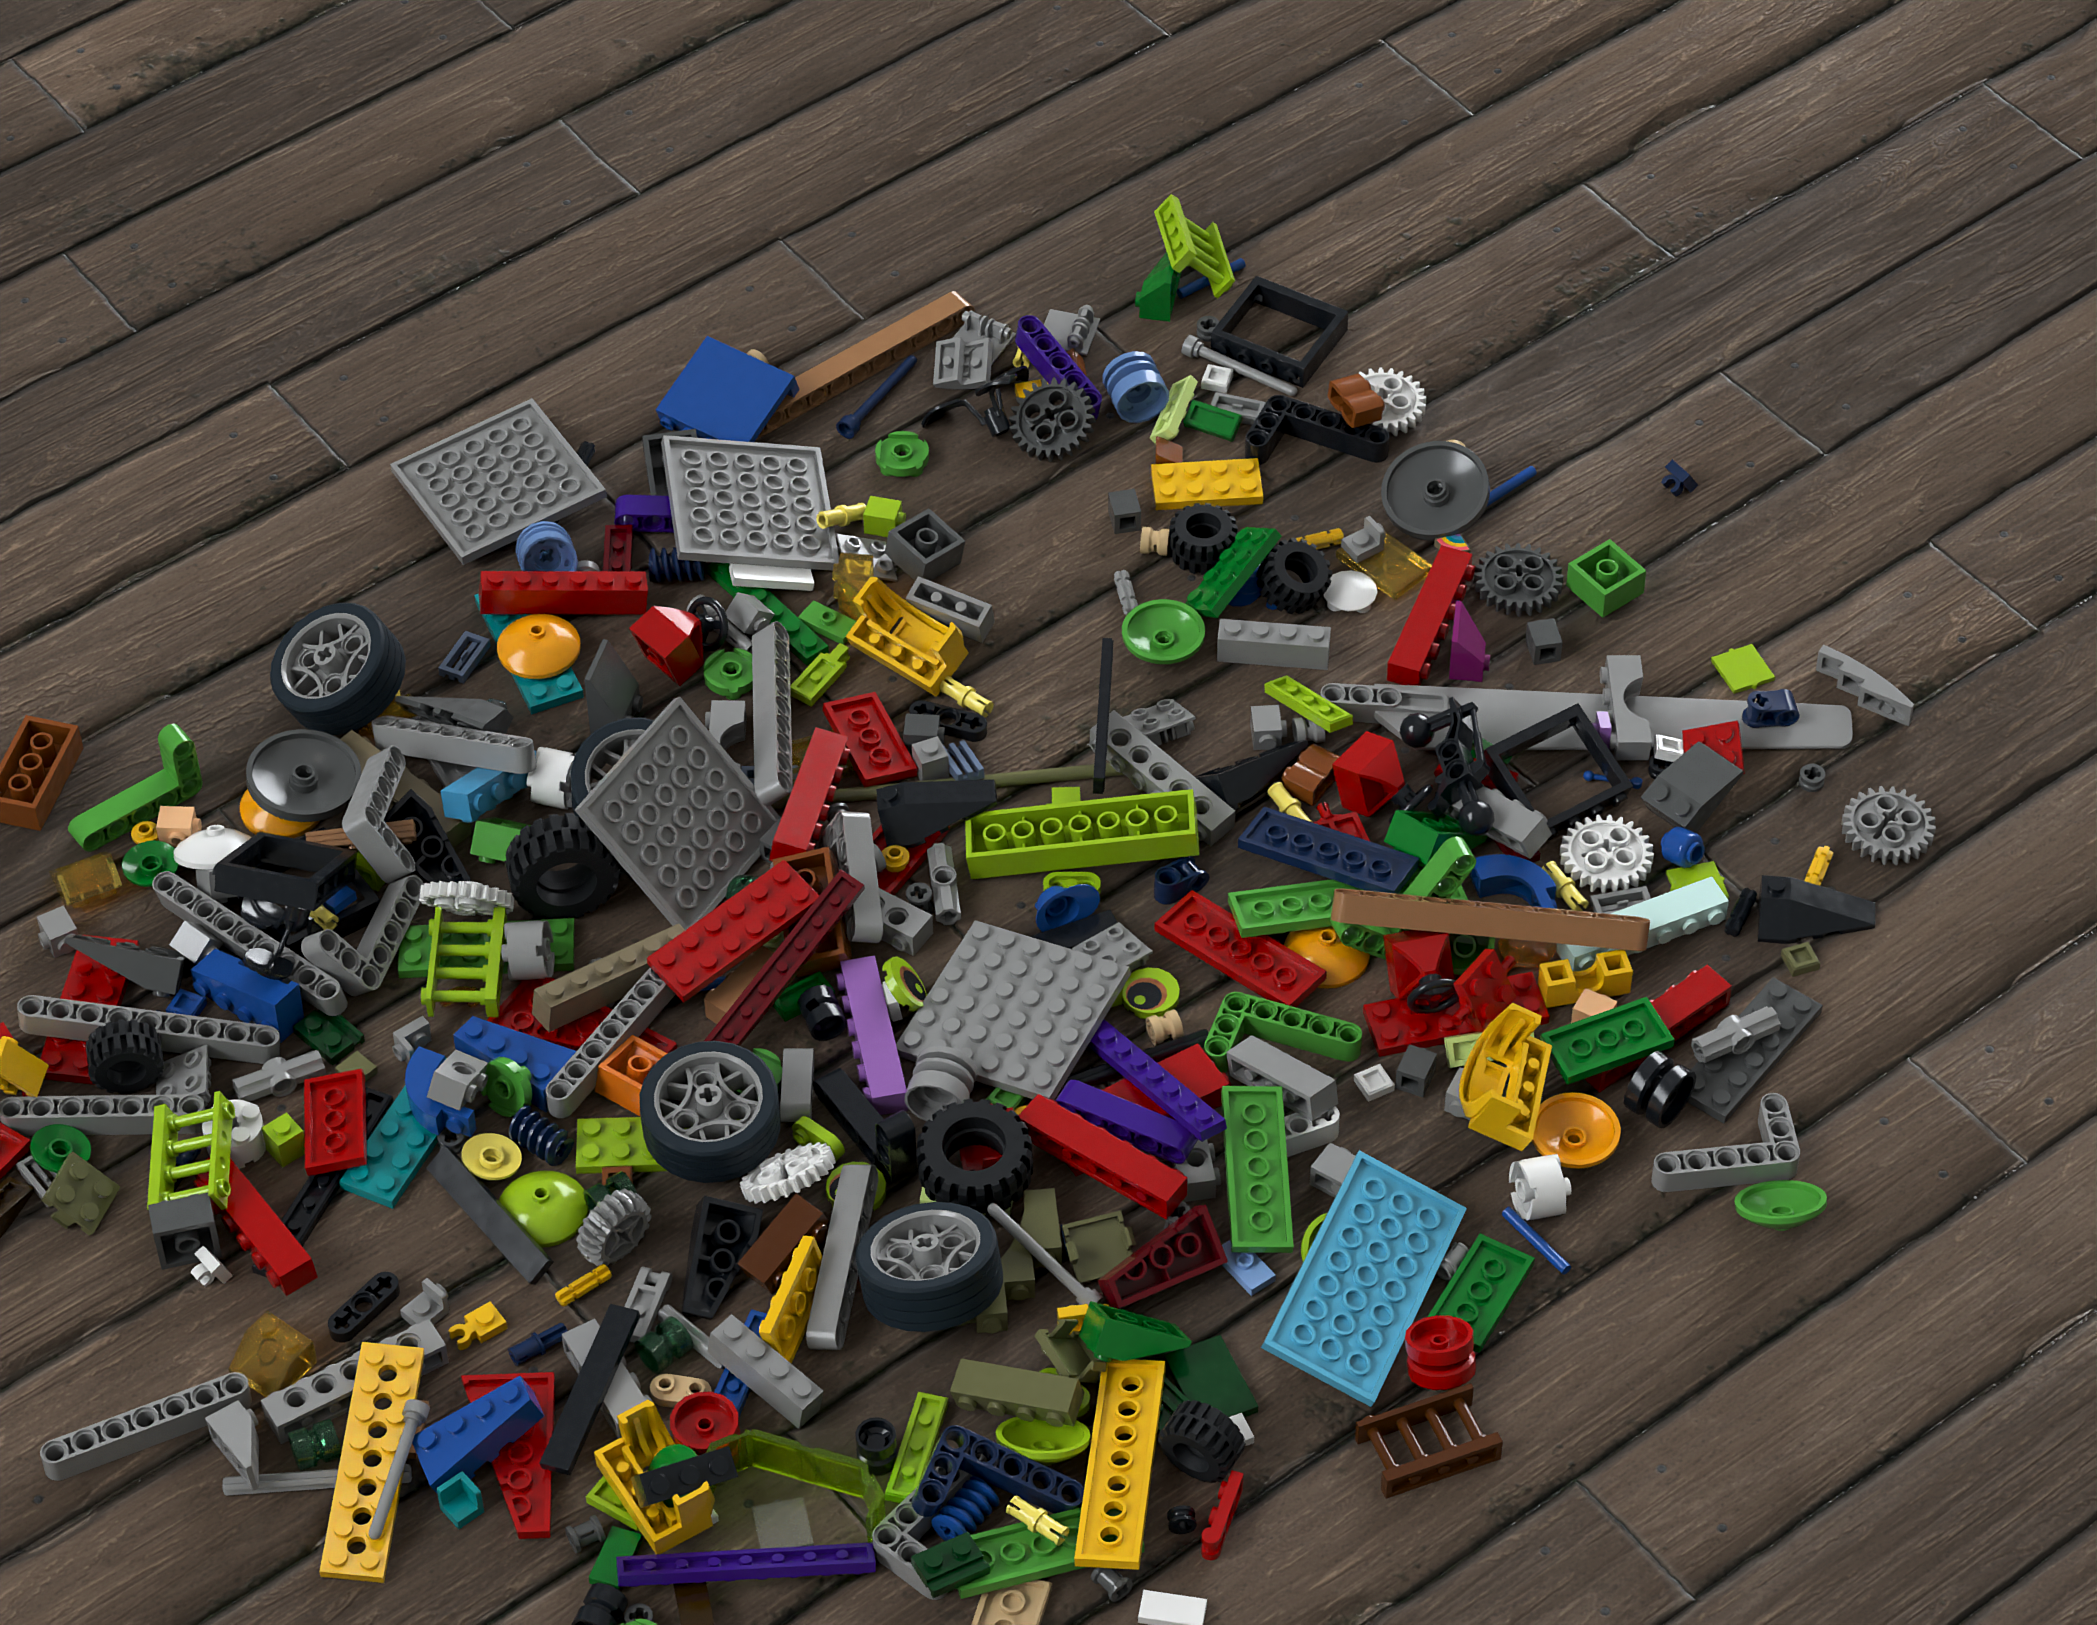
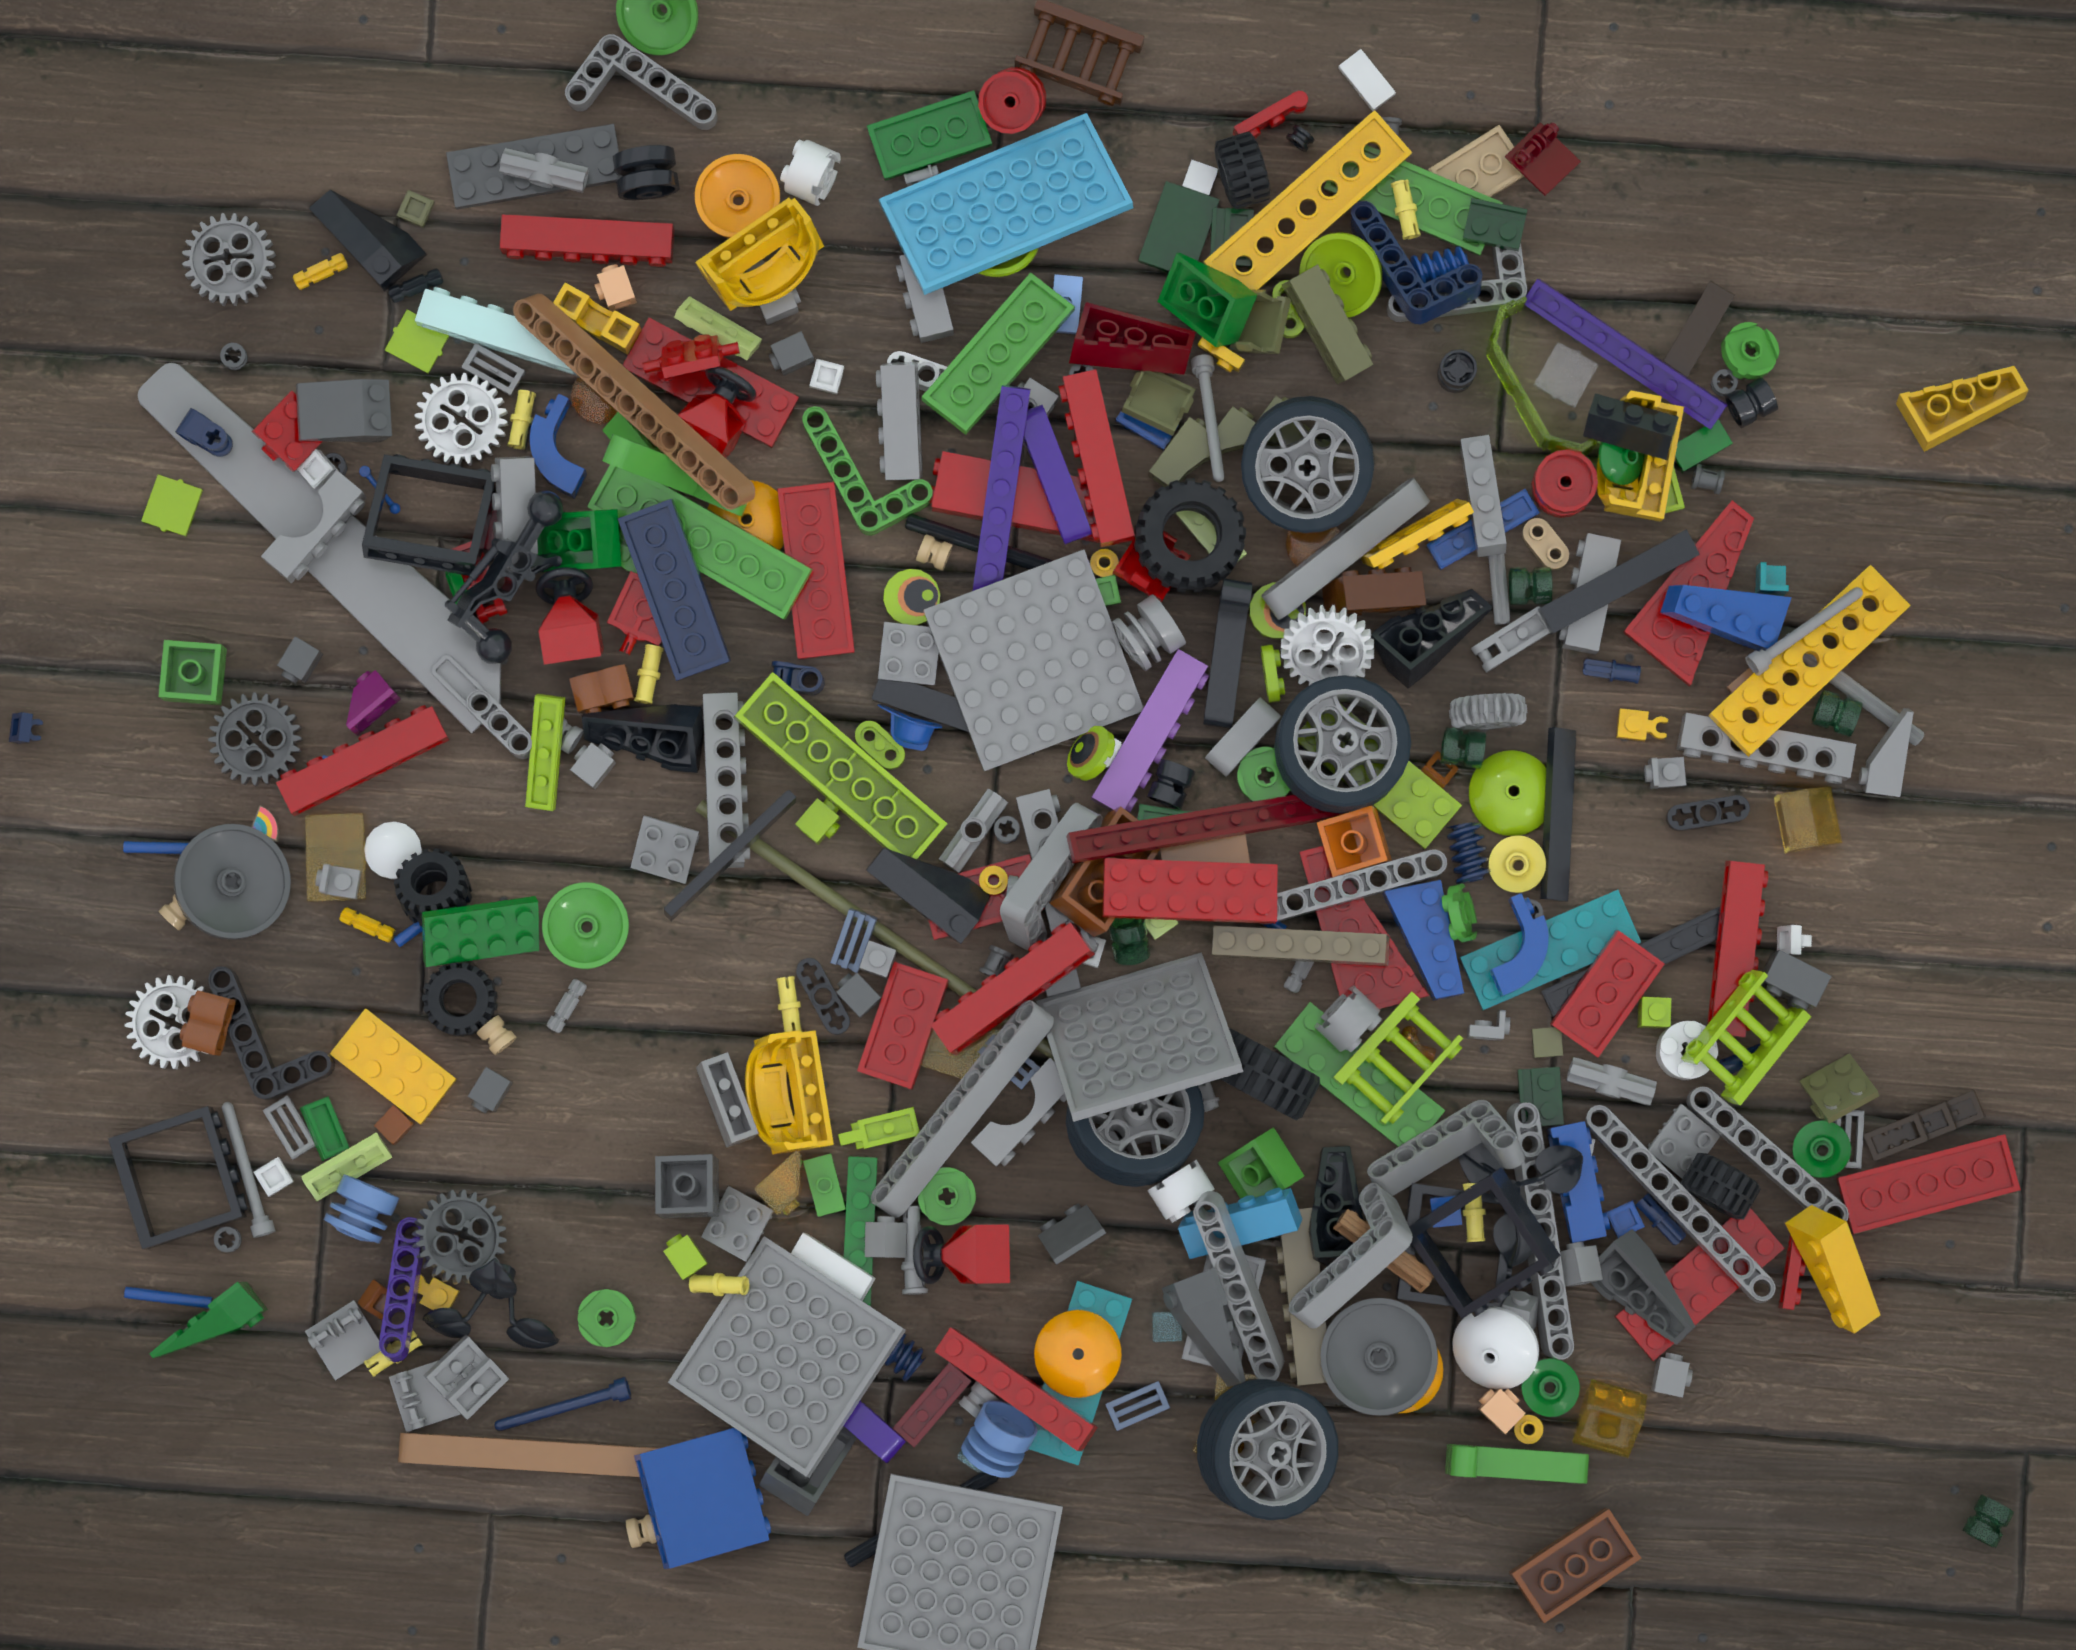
camera: 140 degrees left, 35 degrees up
(131, 1427) = (1953, 835): light grey beam -> none
(458, 1080) = (1518, 929): light grey brick -> none
(465, 897) = (1354, 1113): white gear -> none
(583, 1285) = (1542, 695): yellow axle -> none
(916, 1445) = (1423, 356): lime tile -> none
(1194, 246) = (183, 1328): lime fence -> none
(1273, 644) = (509, 841): light grey brick -> none
(1536, 1240) = (845, 145): blue bar -> none
(1603, 726) = (356, 521): medium lavender plate -> none
(1607, 1040) = (645, 240): green plate -> none
(1682, 847) = (403, 371): blue head -> none
(1872, 689) = (104, 390): light grey slope -> none

